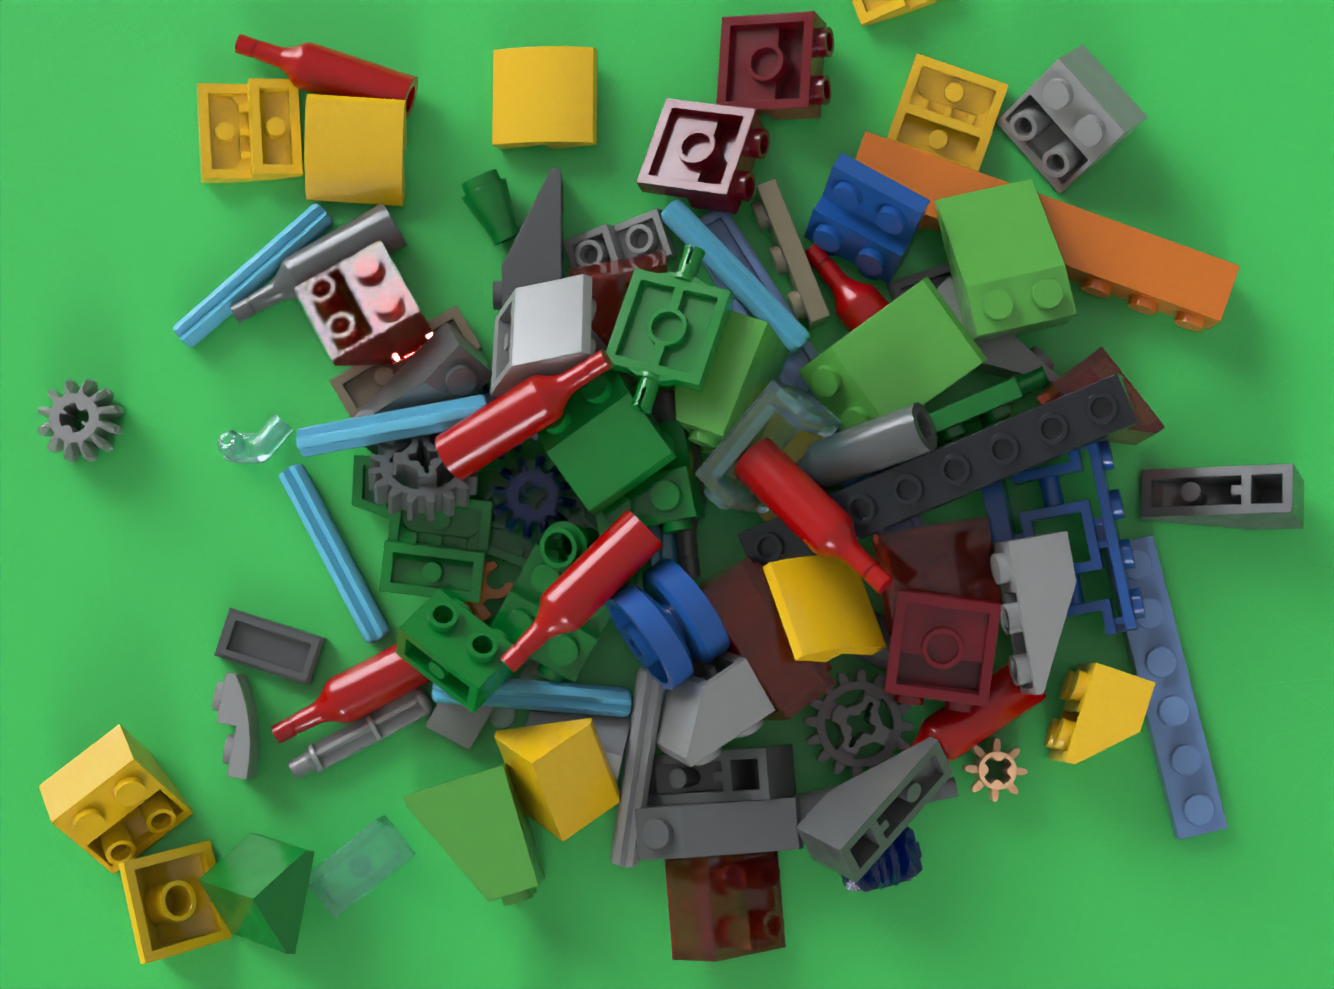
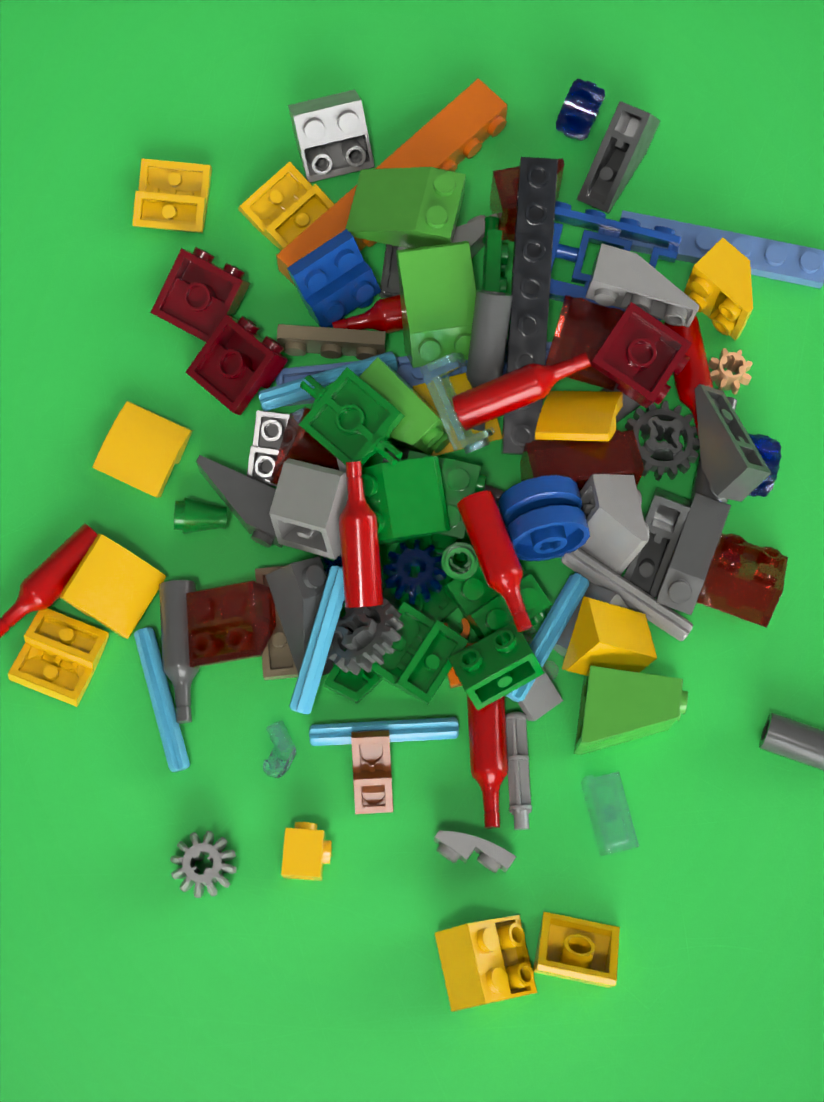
camera: 70 degrees left, 10 degrees down
(146, 530) = (305, 852): none -> yellow brick
(261, 890) = (599, 881): green slope -> none
(270, 646) = (427, 806): dark grey tile -> none
(278, 562) = (372, 772): none -> slope
(1264, 417) = (580, 109): none -> clear blue gear

